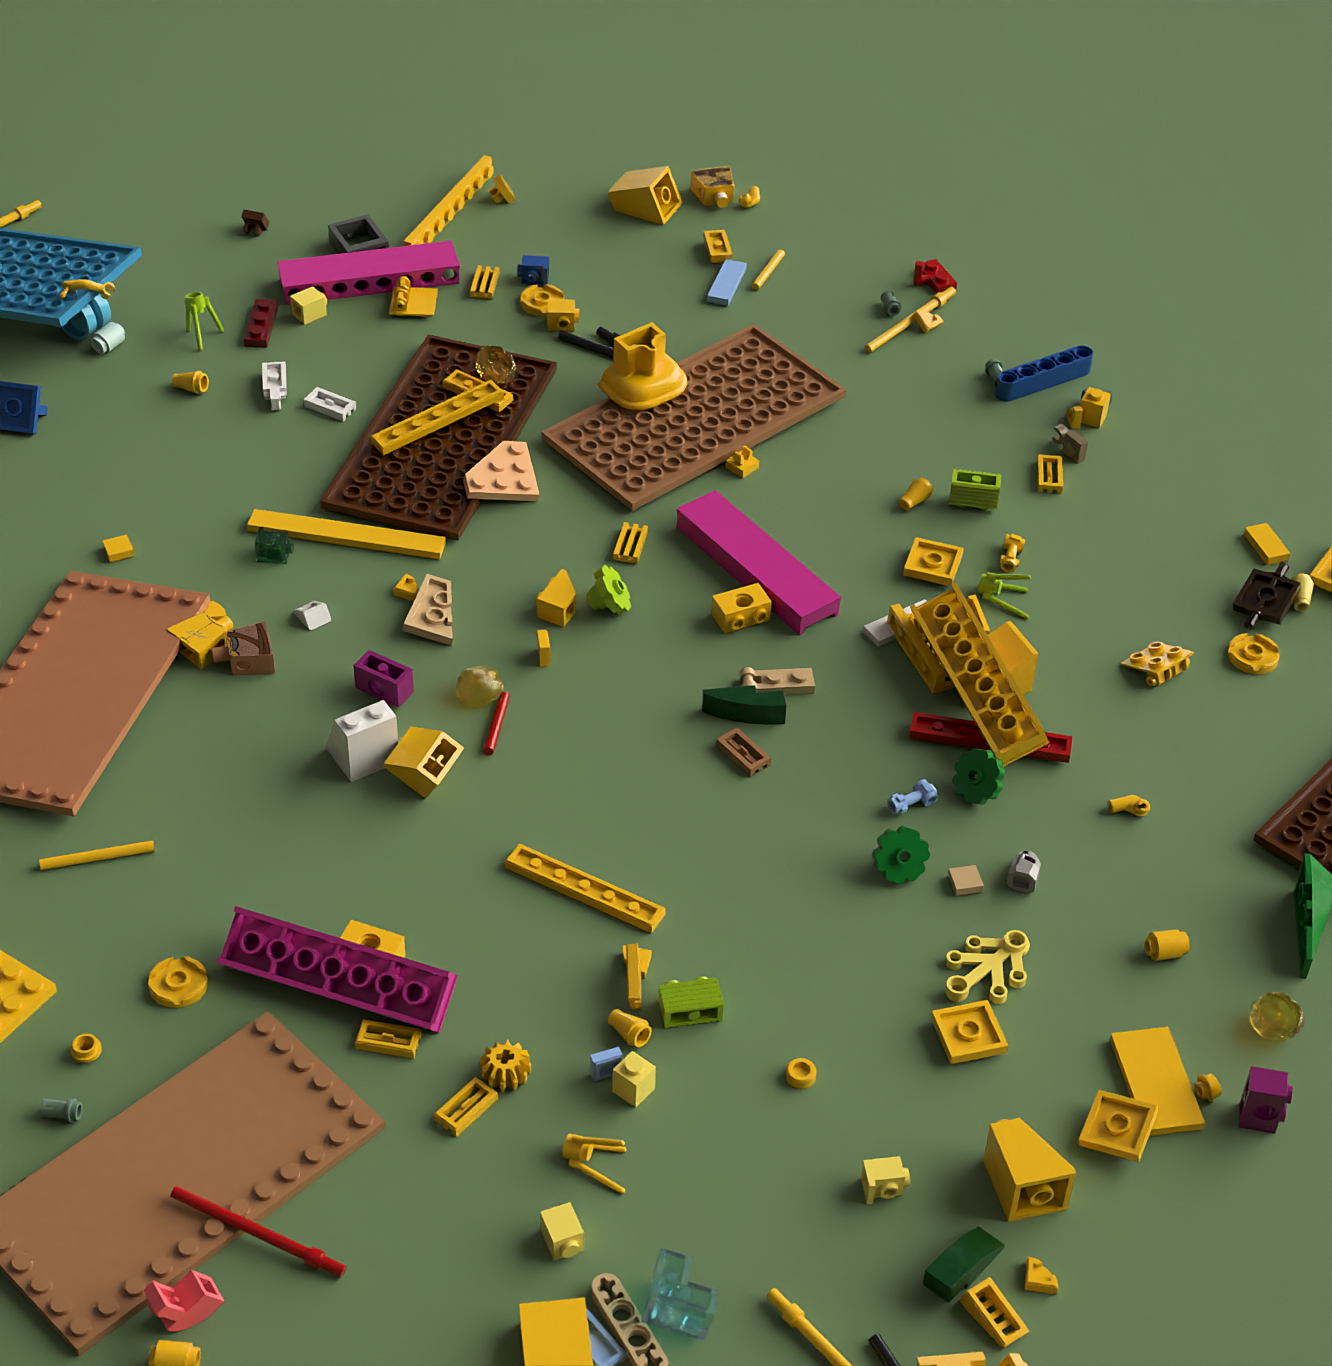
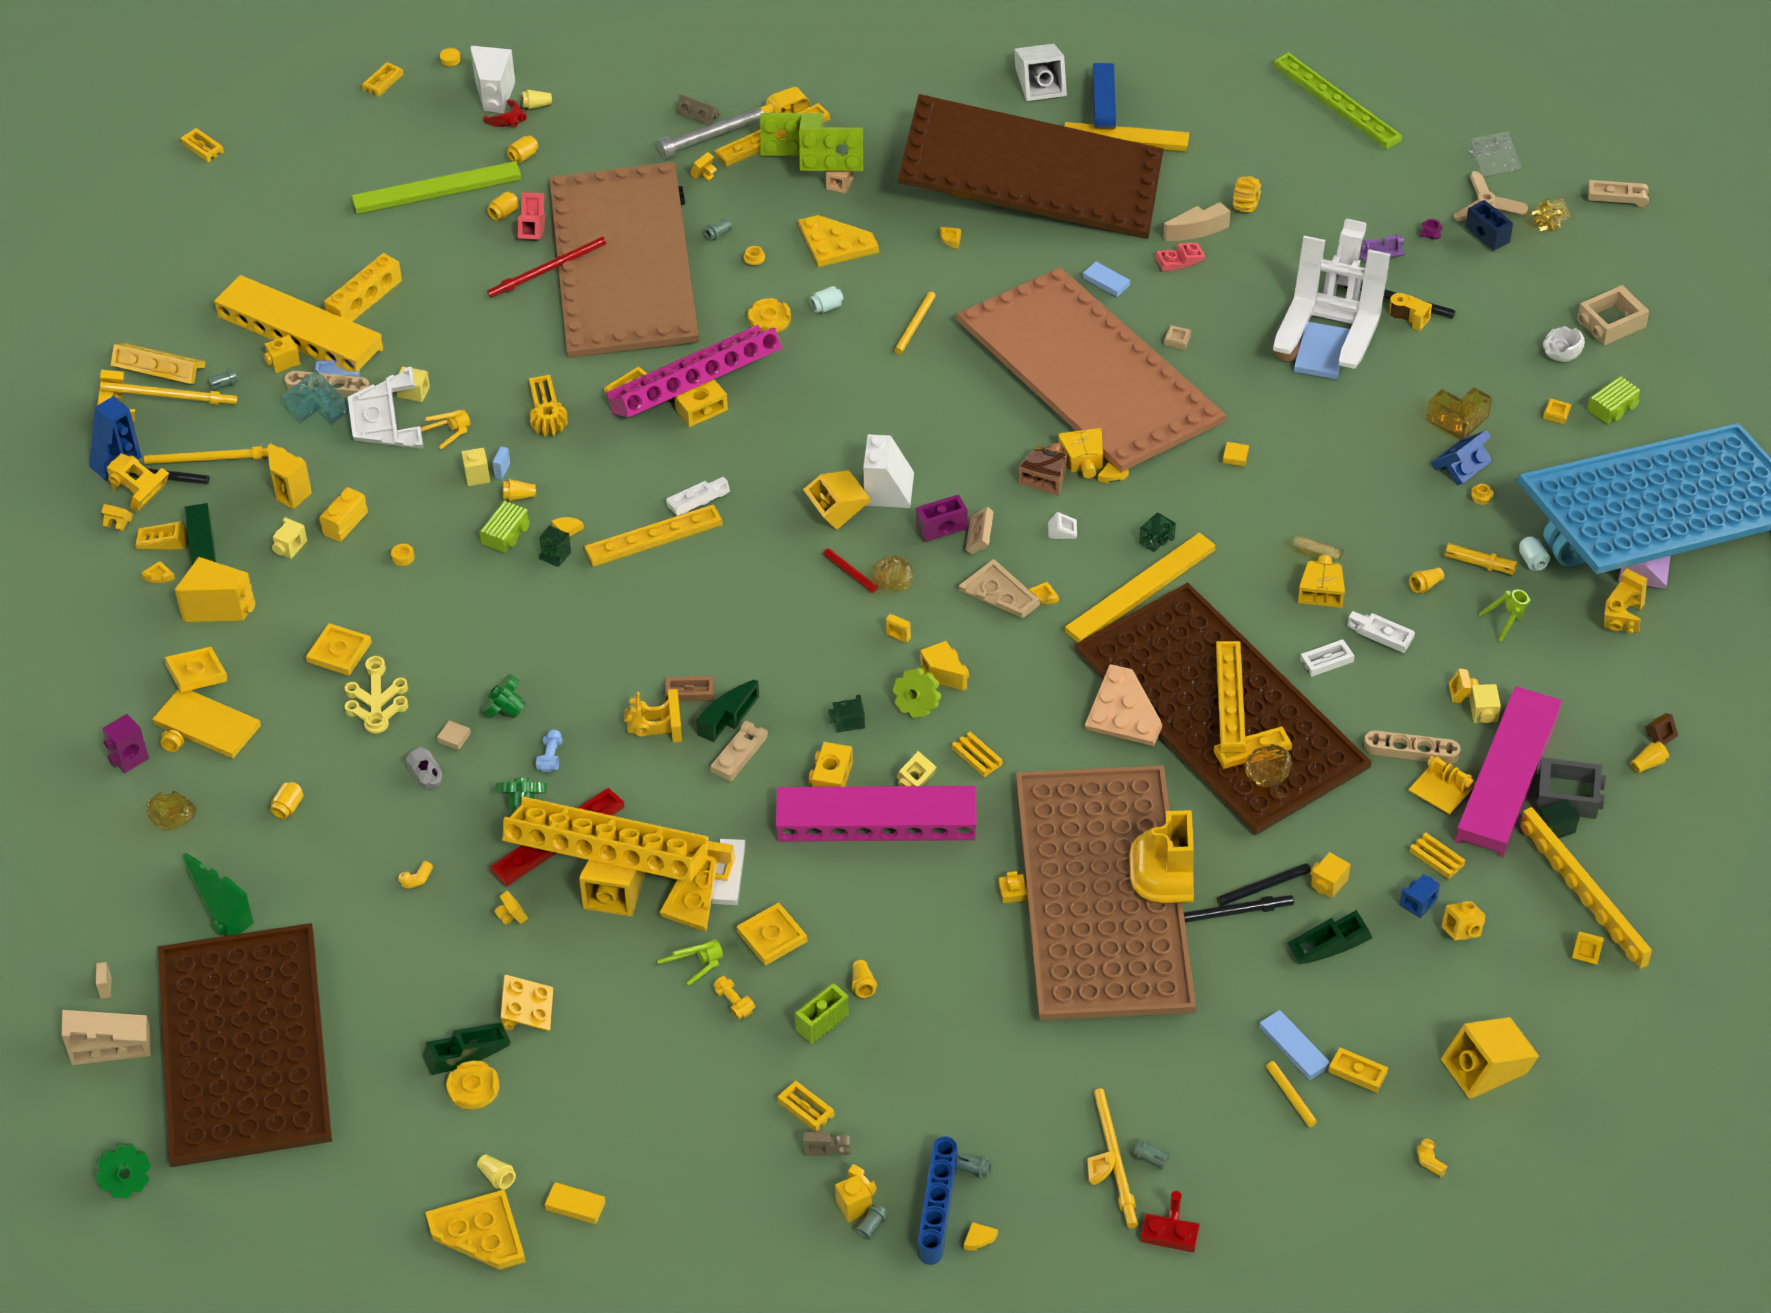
camera: 130 degrees right, 5 degrees up
(51, 392) = (1482, 494): none -> yellow plate
(73, 285) = (1545, 521): yellow piece -> none
(120, 937) = (826, 300): none -> light aqua brick
(137, 359) = (1485, 560): none -> yellow pin
(151, 269) = (1629, 592): none -> yellow tile
(205, 449) = (1308, 545): none -> clear yellow plate
(248, 431) = (1322, 583): none -> yellow torso
(261, 323) = (1488, 667): dark red plate -> none
(288, 219) = (1650, 757): none -> yellow cone
(301, 322) = (1461, 686): none -> yellow tile
(383, 330) = (1412, 743): none -> tan beam
(383, 646) = (979, 530): none -> tan plate
(396, 232) = (1560, 818): none -> clear green brick
(507, 877) = (697, 495): none -> white hinge
(535, 299) = (1374, 884): yellow tile -> none
(541, 240) = (1463, 920): none -> yellow brick
(618, 295) = (1330, 938): none -> dark green slope
(634, 976) = (547, 509): yellow tile -> none
(635, 1228) = (374, 413): none -> white wing
(671, 628) = (847, 715): none -> clear green brick
(678, 942) = (554, 546): none -> clear green brick
(693, 557) = (918, 766): none -> light yellow brick
(713, 186) = (1467, 1131): yellow torso -> none
(794, 738) = (669, 713): none -> yellow tile
(807, 1149) = (343, 514): none -> yellow brick
(814, 1229) = (288, 477): none -> yellow slope
(1042, 348) = (979, 1236): none -> yellow tile
(1091, 720) = (510, 909): none -> yellow tile
(1235, 670) = (465, 1046): none -> dark green slope
(1267, 596) = (511, 1132): dark brown plate -> none

